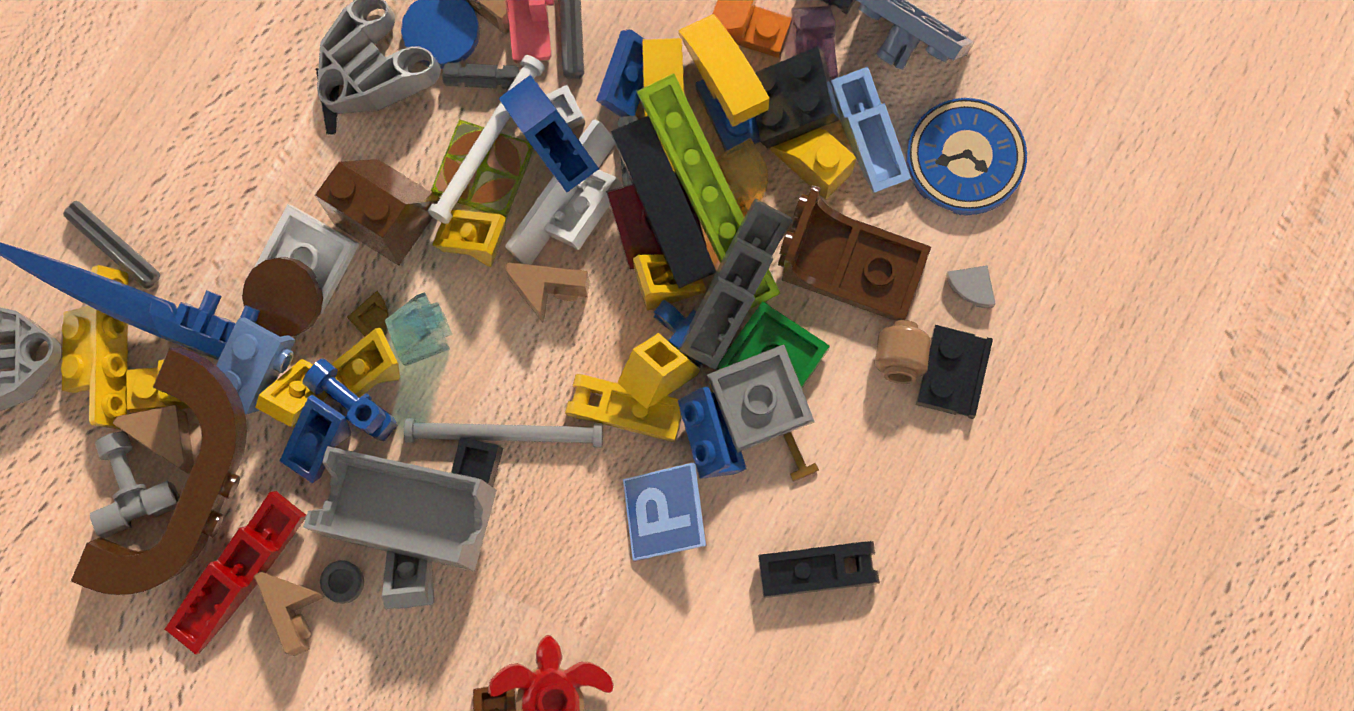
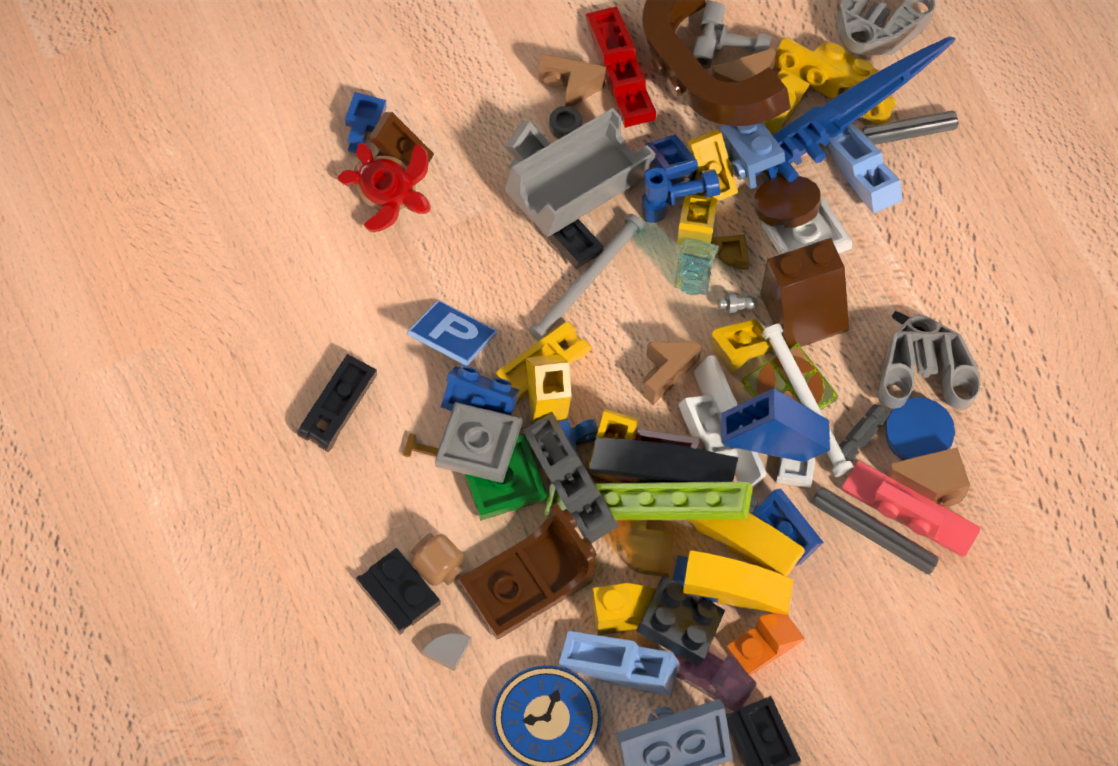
camera: 120 degrees right, 10 degrees down
(192, 250) = (864, 169): none -> light blue slope
(429, 278) = (733, 303): none -> light grey piece

